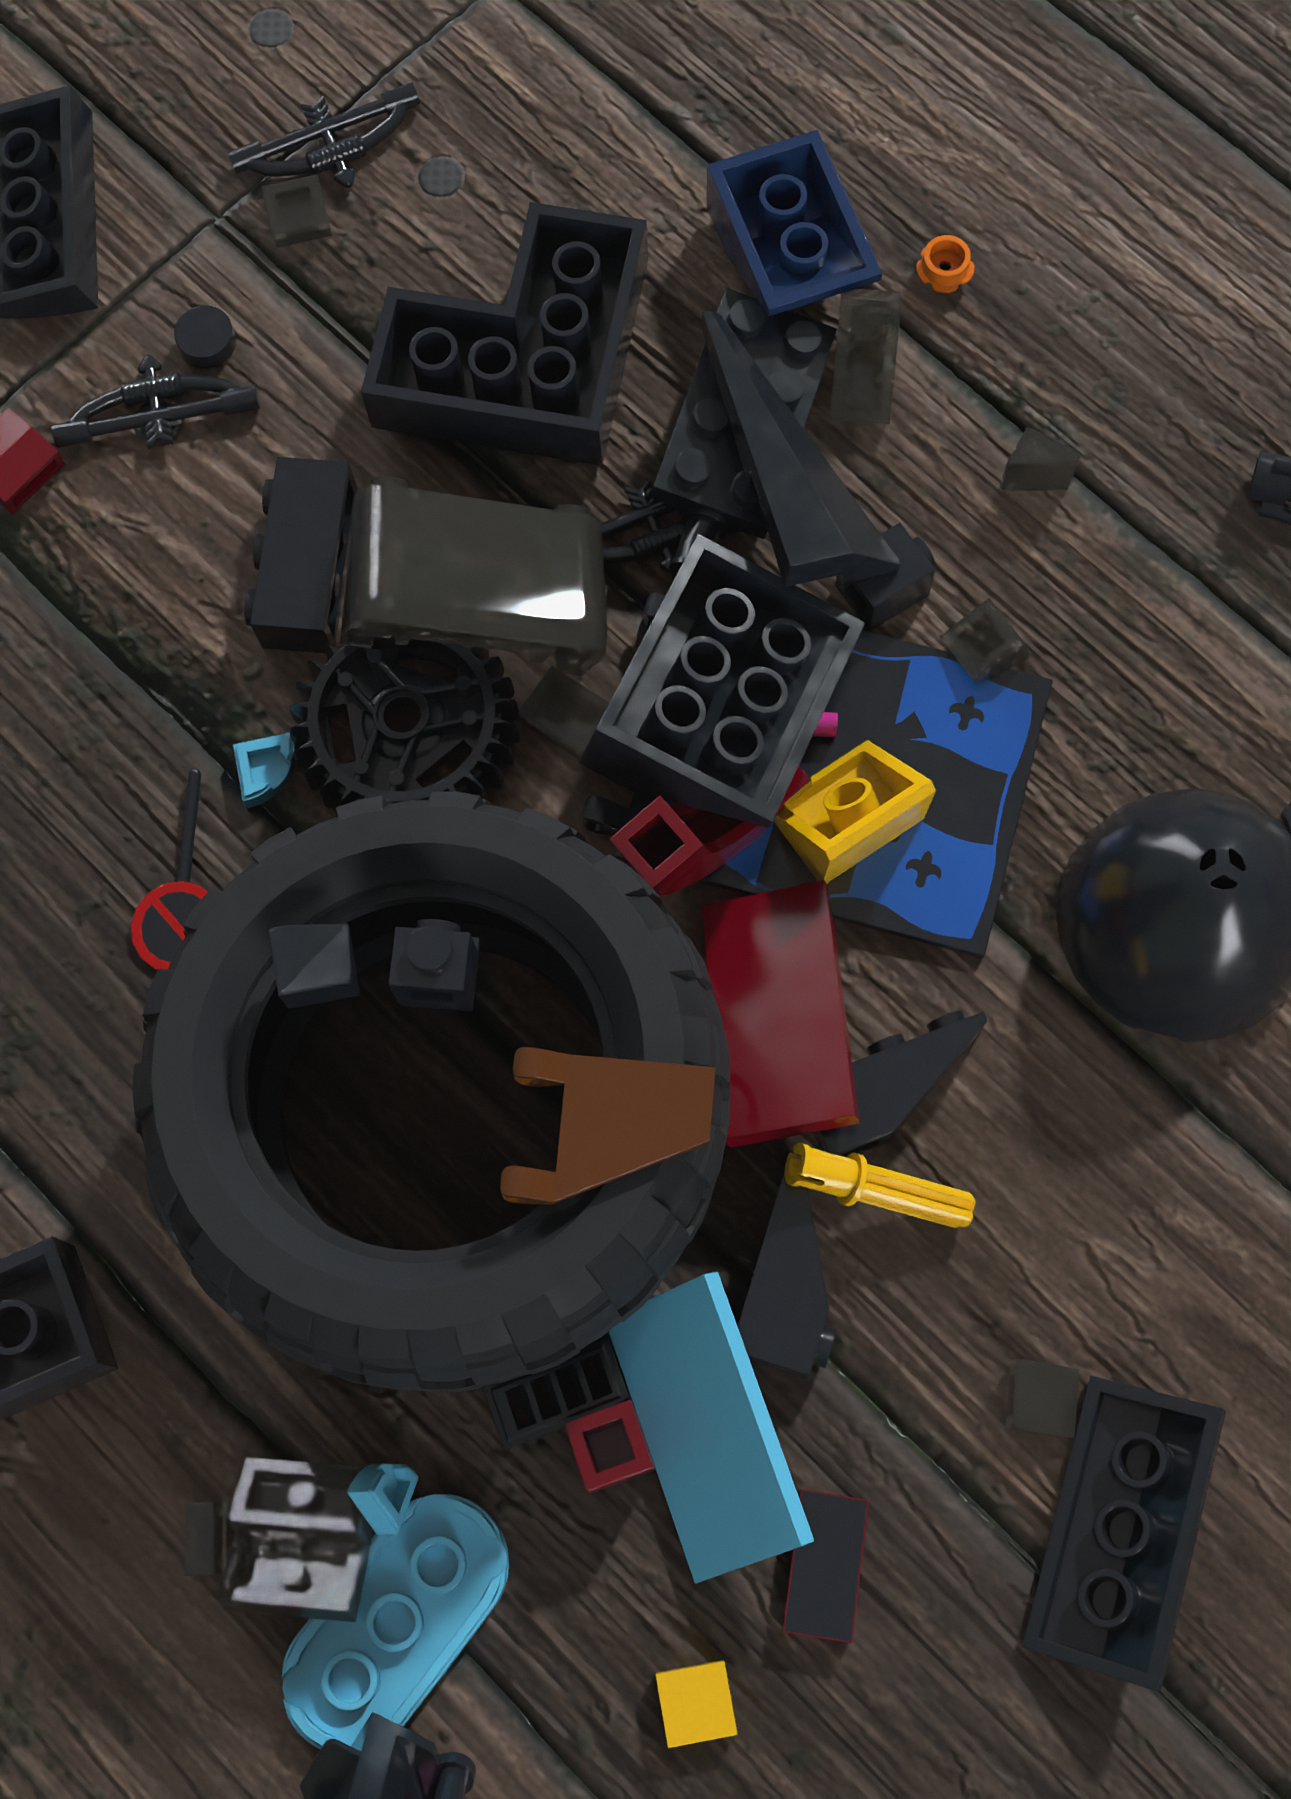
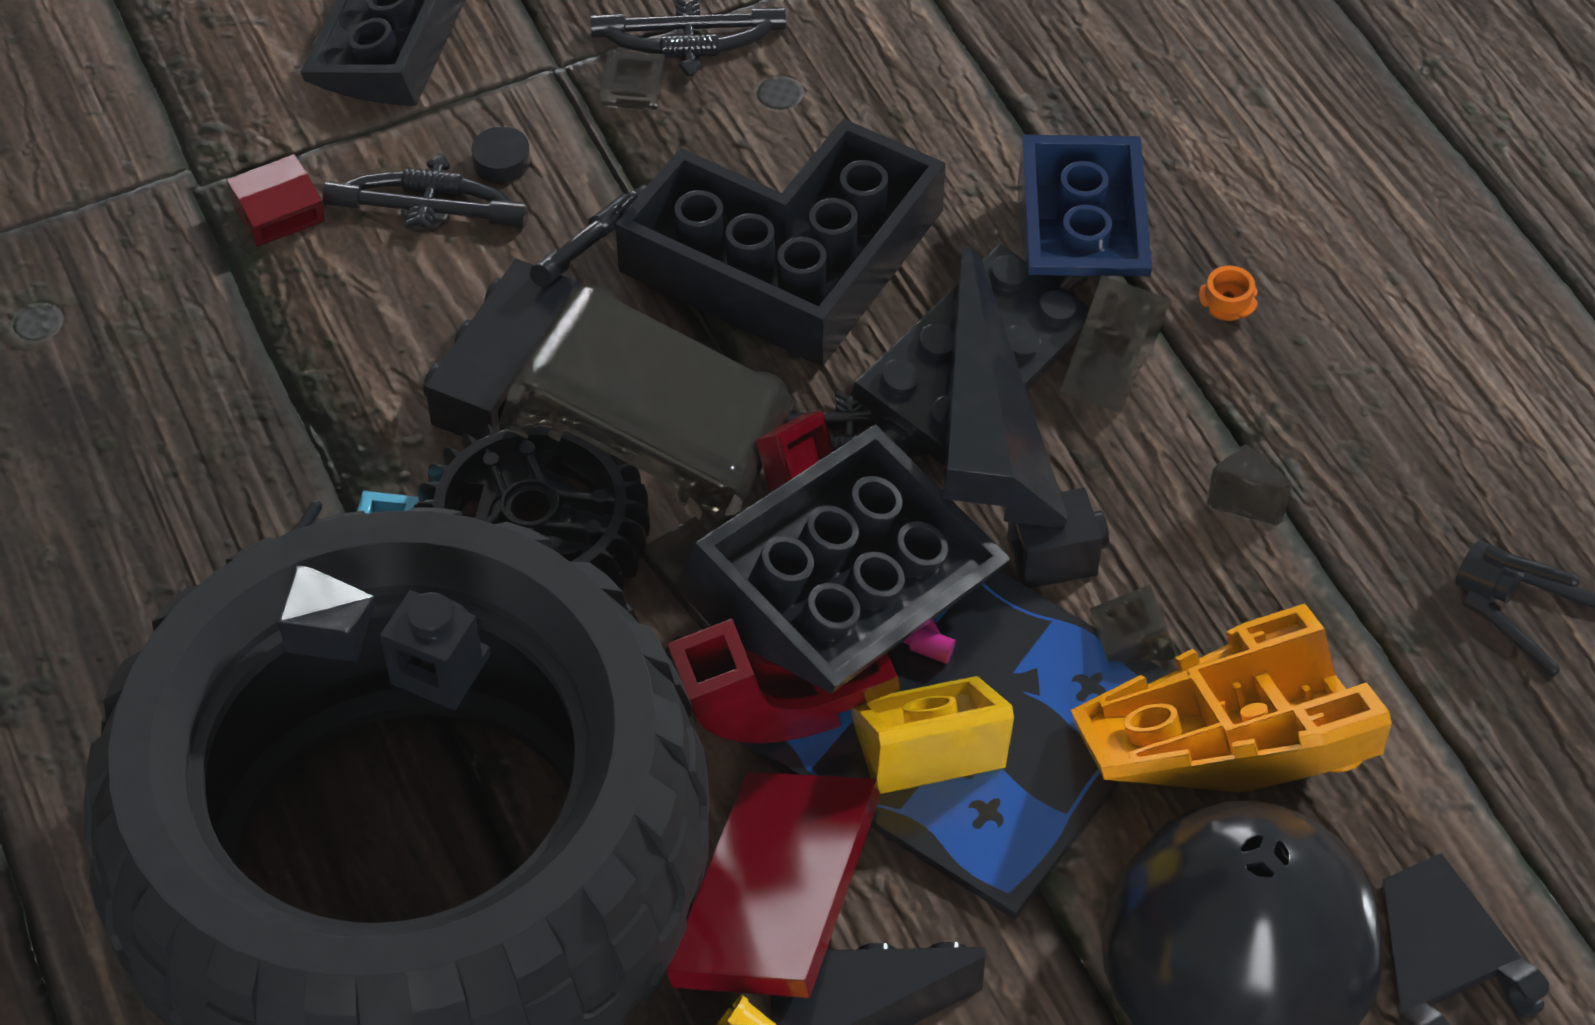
camera: 15 degrees right, 20 degrees down
(345, 398) = (598, 227): none -> black piece
(612, 1120) = (539, 839): reddish brown flag -> none
(627, 579) = (794, 448): none -> dark red tile
(1113, 702) = (1239, 715): none -> light orange wedge

